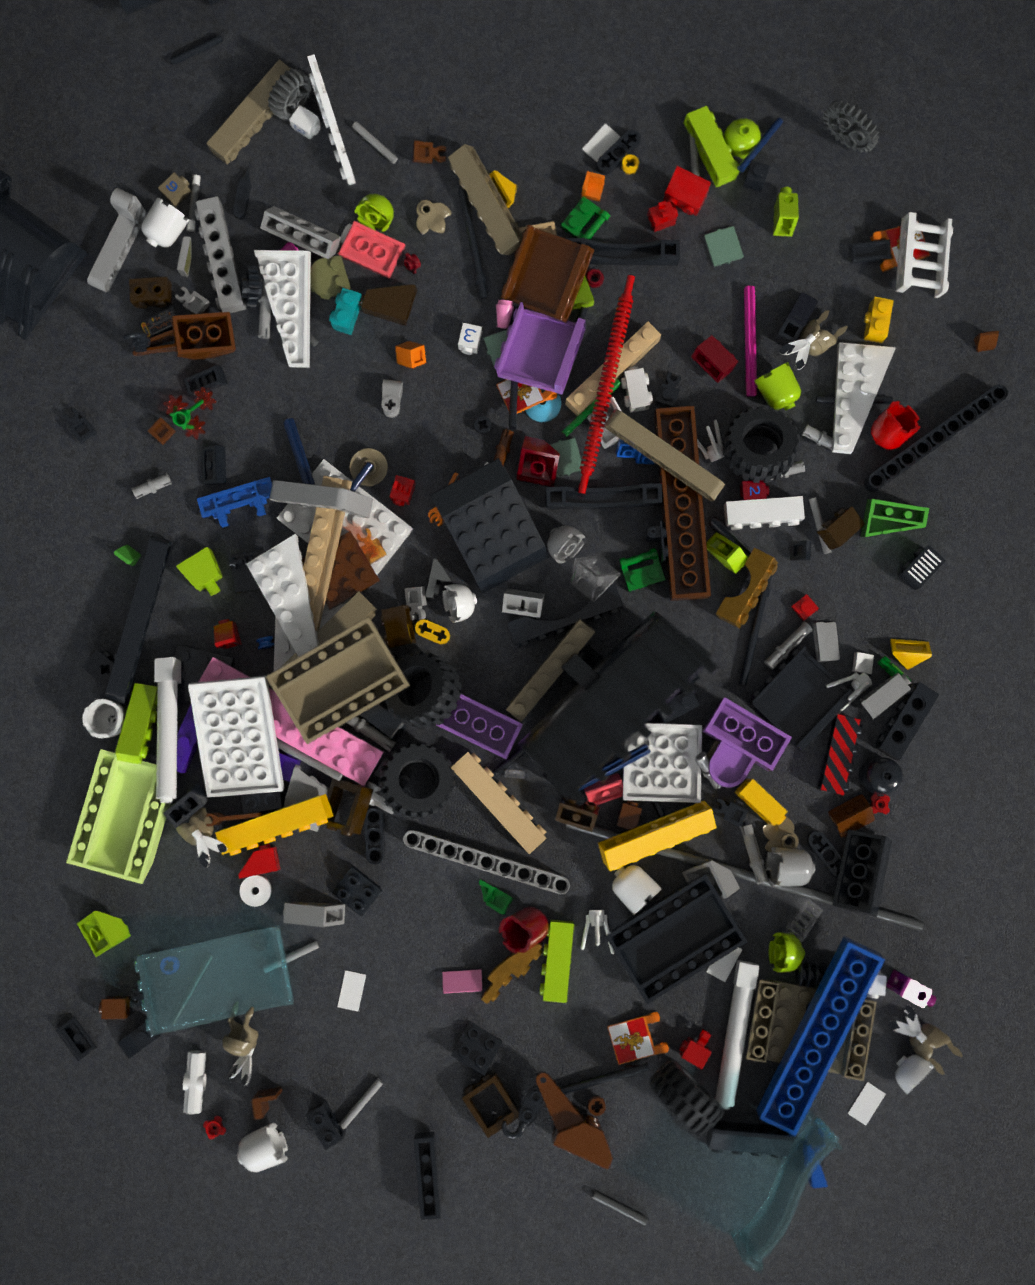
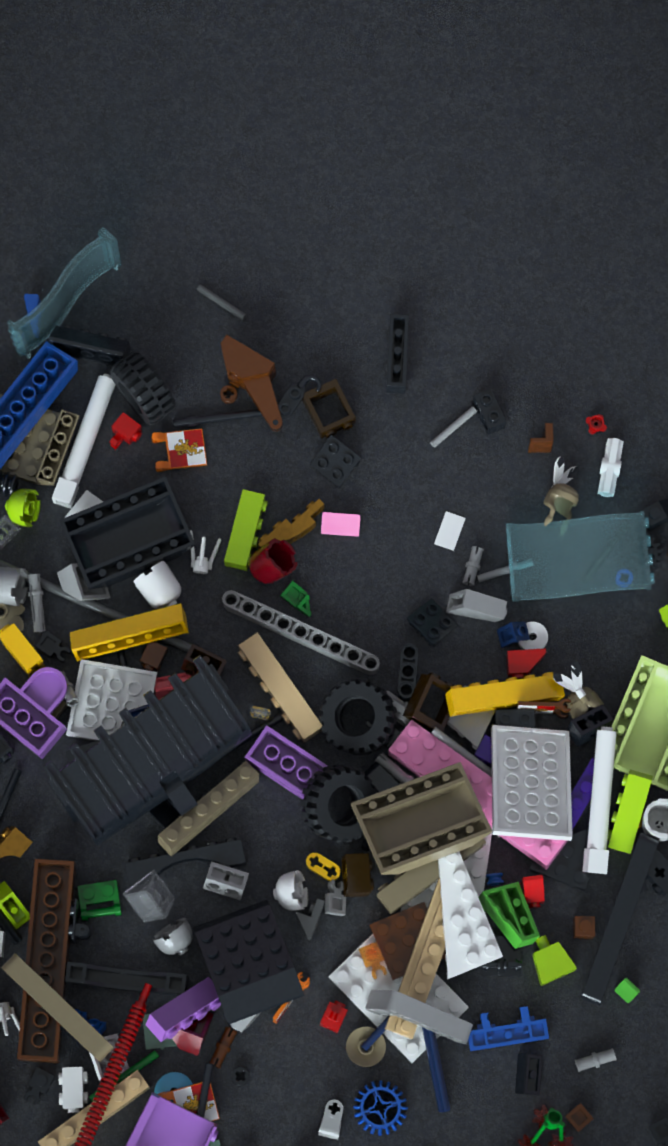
camera: 175 degrees left, 10 degrees down
(174, 607) = (583, 927): none -> reddish brown brick
(244, 608) = (510, 913): none -> bright green wedge
(262, 1149) = (551, 397): white cylinder -> none
(274, 890) = (513, 633): none -> dark blue bracket
(323, 956) = (472, 566): none -> light grey pin
(342, 417) = (363, 1113): none -> blue gear
(545, 469) = (183, 1010): none -> medium lavender brick

